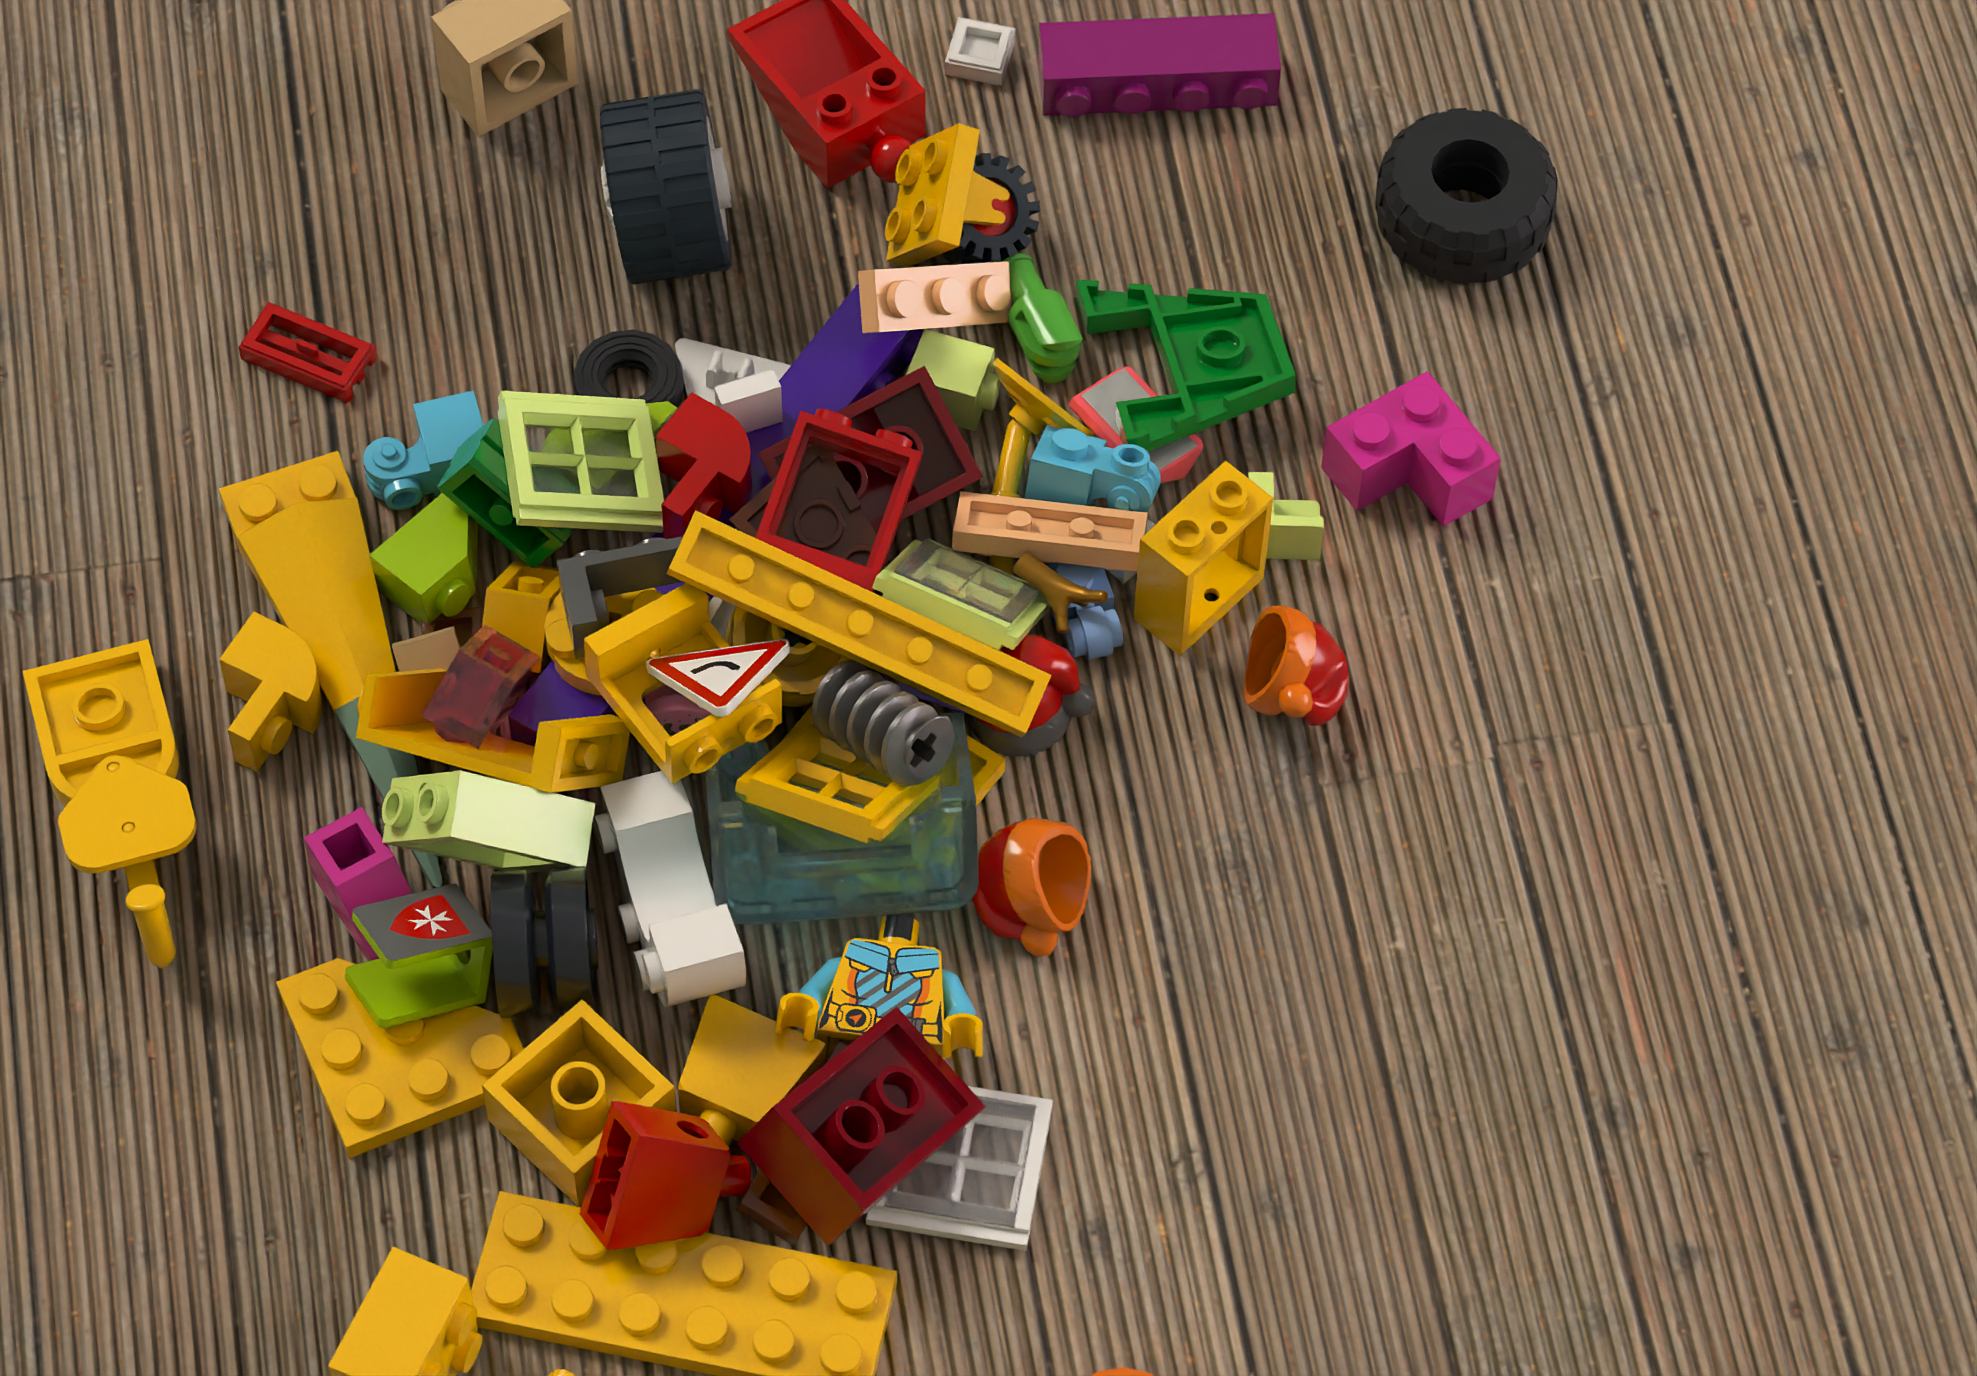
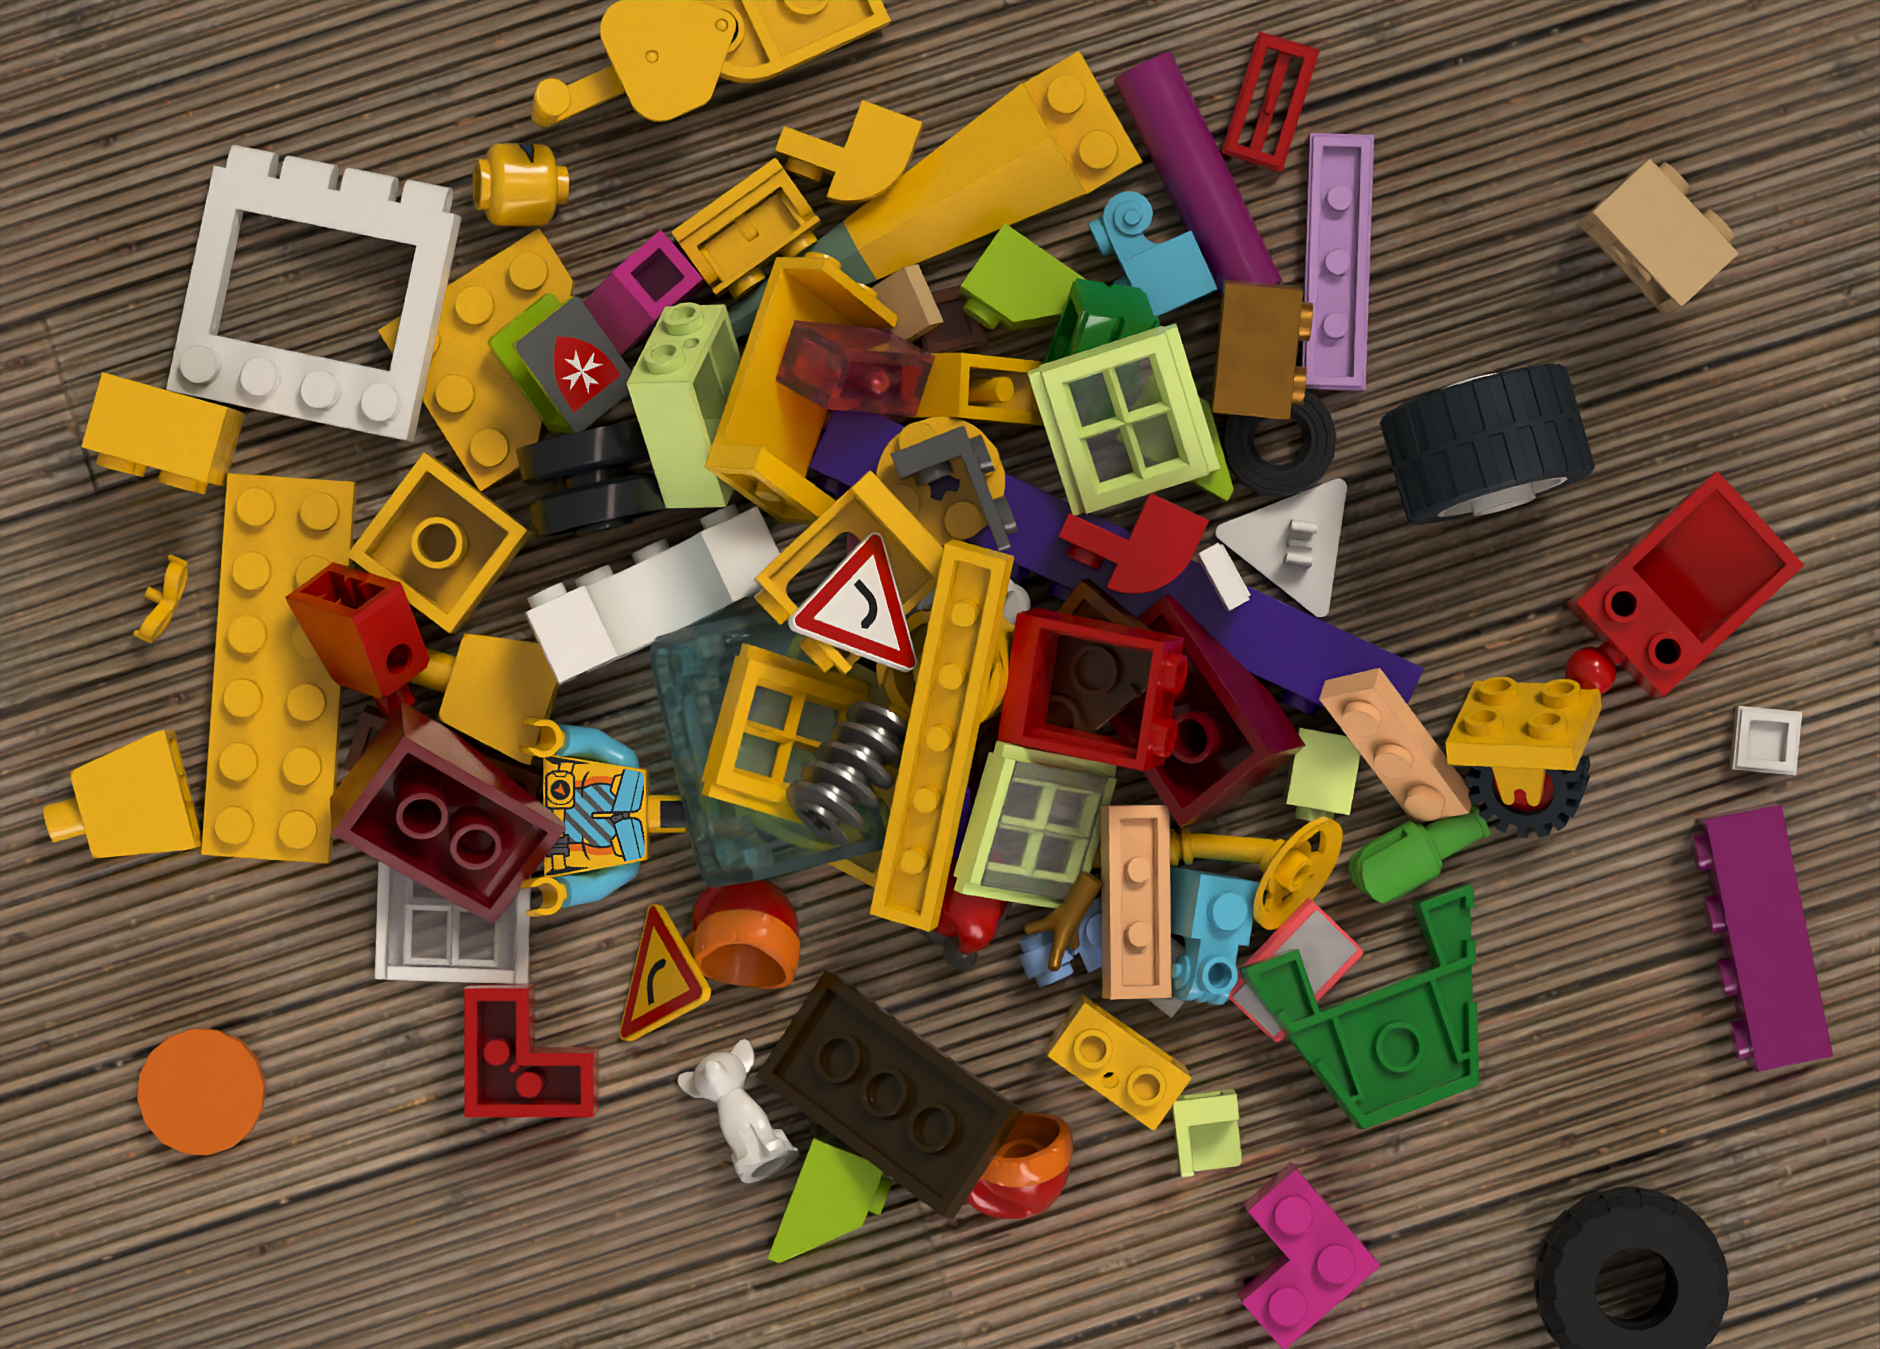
camera: 85 degrees right, 30 degrees up
(227, 989) = (519, 184): none -> yellow head
(319, 777) = (748, 231): none -> yellow hinge
(357, 415) = (1195, 172): none -> magenta brick
(387, 1215) = (298, 382): none -> white hinge
(470, 318) = (1338, 259): none -> lavender tile
(535, 352) = (1259, 349): none -> pearl gold brick
(1066, 965) = (663, 980): none -> piece
(1129, 1113) = (507, 1071): none -> red brick
(1209, 758) = (889, 1094): none -> dark brown plate
(1220, 911) = (756, 1146): none -> white animal
(1308, 848) = (829, 1198): none -> lime slope

